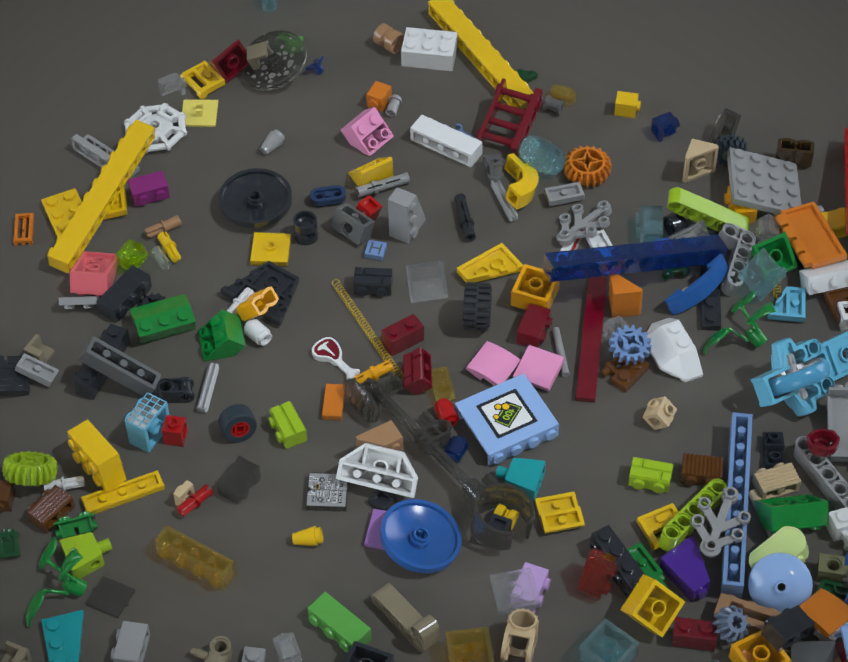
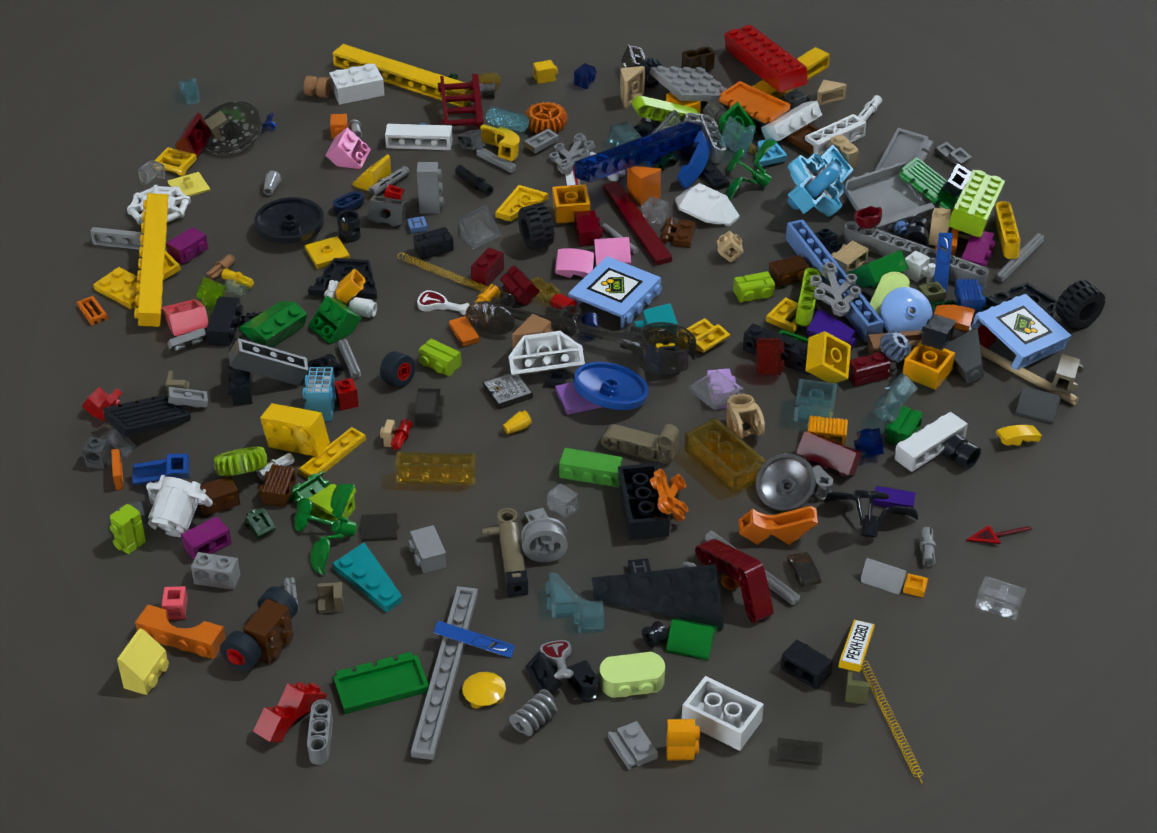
camera: 30 degrees left, 10 degrees down
(630, 344) = (675, 210): medium blue gear -> none

